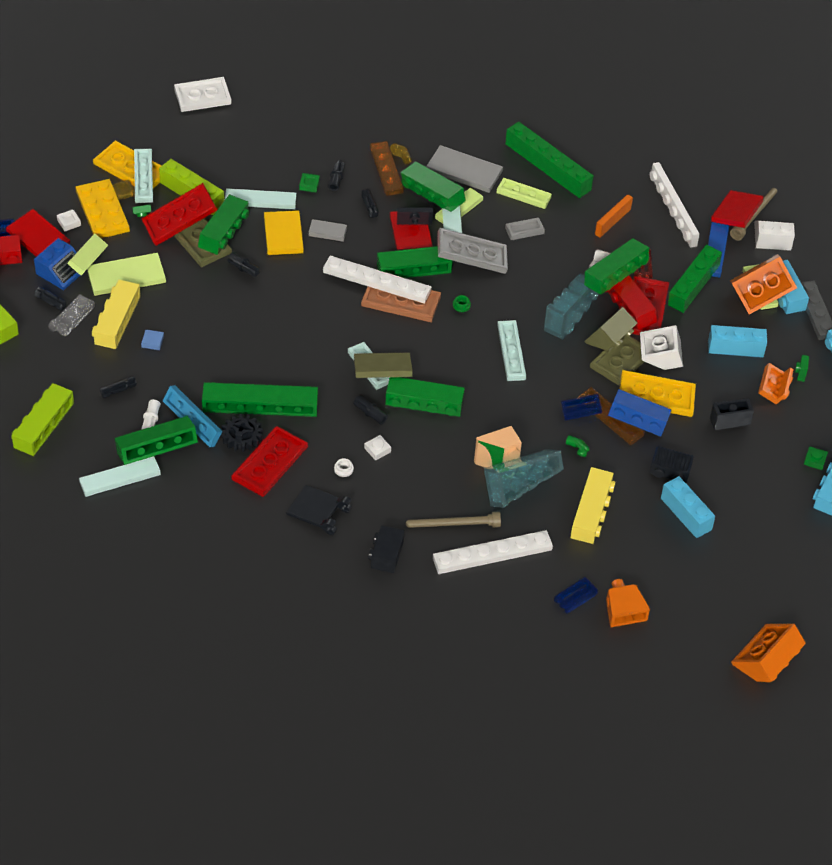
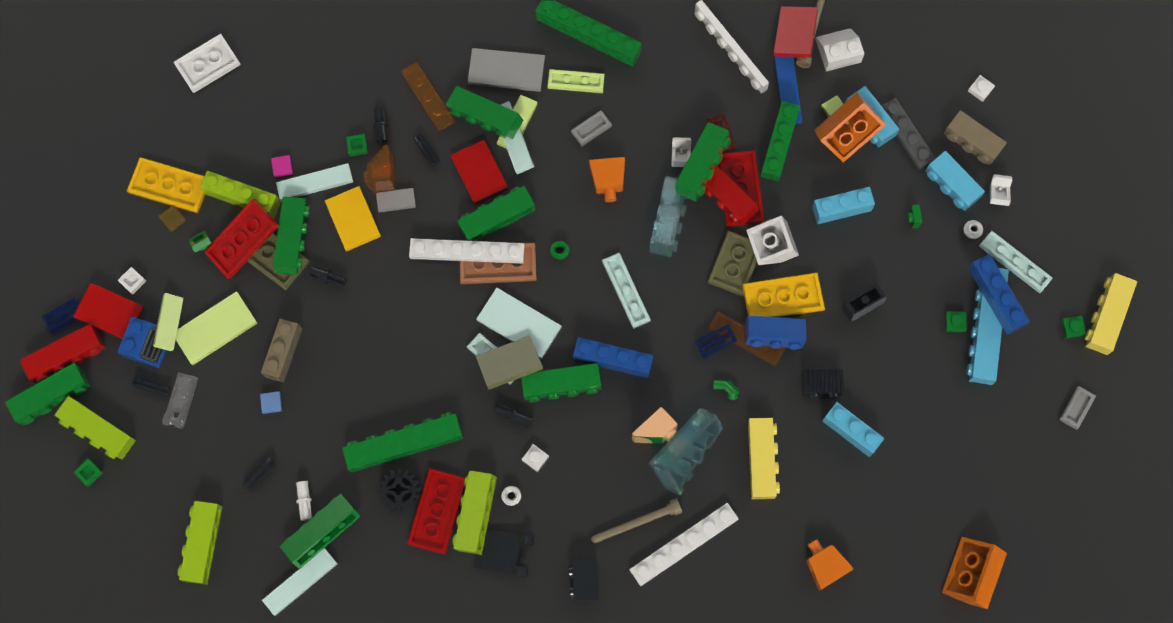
camera: 10 degrees left, 25 degrees up
(102, 208) = (160, 251): yellow plate -> none
(116, 314) = (224, 385): light yellow brick -> none
(143, 175) = (186, 196): light aqua tile -> none
(179, 303) = (281, 350): none -> dark tan brick
(183, 406) = (341, 485): dark azure plate -> none
(236, 180) = (282, 166): none -> dark pink tile
(305, 468) = (475, 512): none -> lime brick
(323, 200) = (380, 171): none -> clear orange slope
(395, 337) = (517, 320): none -> light aqua tile
(402, 152) = (436, 70): clear yellow arm -> none
(414, 216) = (478, 158): black plate -> none
(472, 250) = (549, 182): light grey tile -> none
(482, 391) = (613, 357): none -> blue brick
(527, 262) = (608, 176): none -> orange torso
(587, 595) = (768, 581): clear blue tile -> none
(612, 331) = (718, 238): olive slope -> none
(613, 216) = (675, 83): orange tile -> none
(775, 383) = (894, 245): orange bracket -> none

